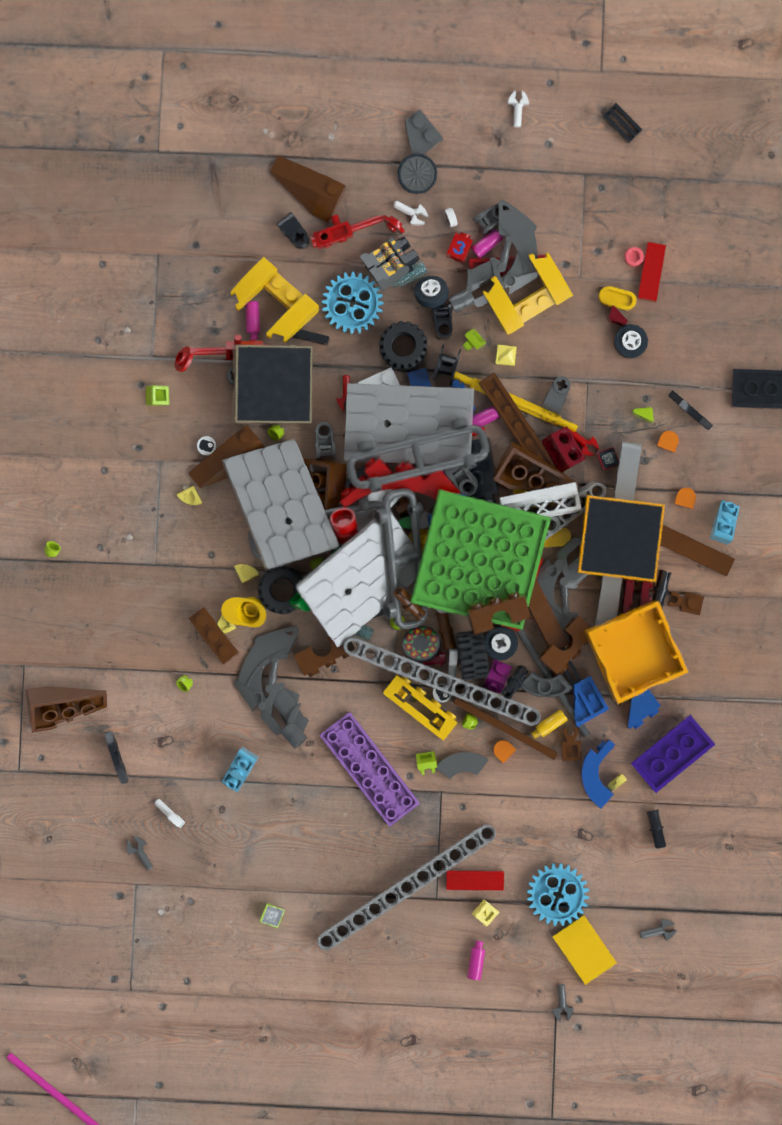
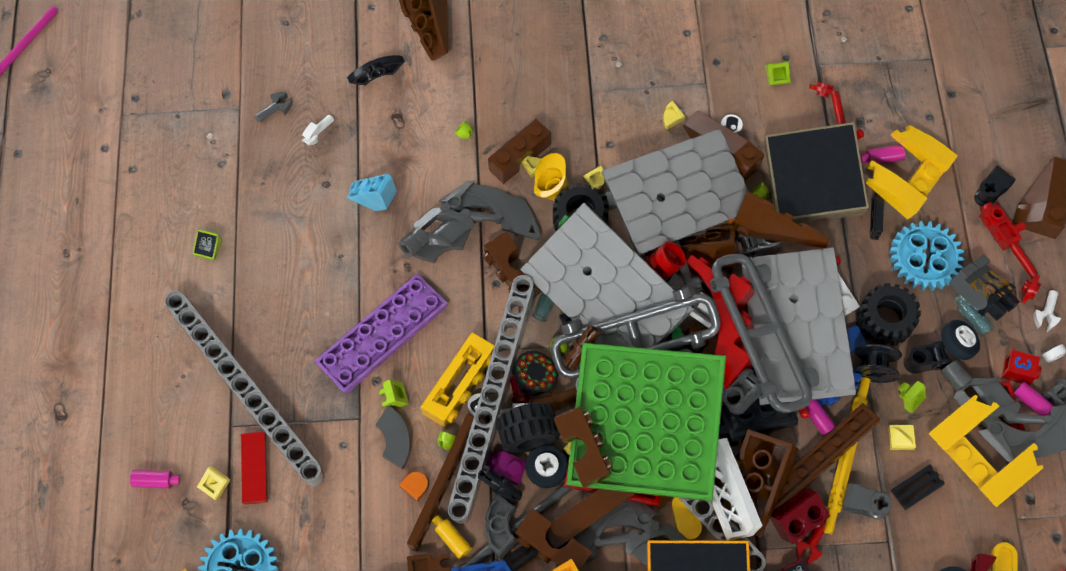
camera: 85 degrees right, 20 degrees down
(316, 435) = (763, 222): none -> reddish brown wedge
(541, 336) = (933, 476): none -> black tile

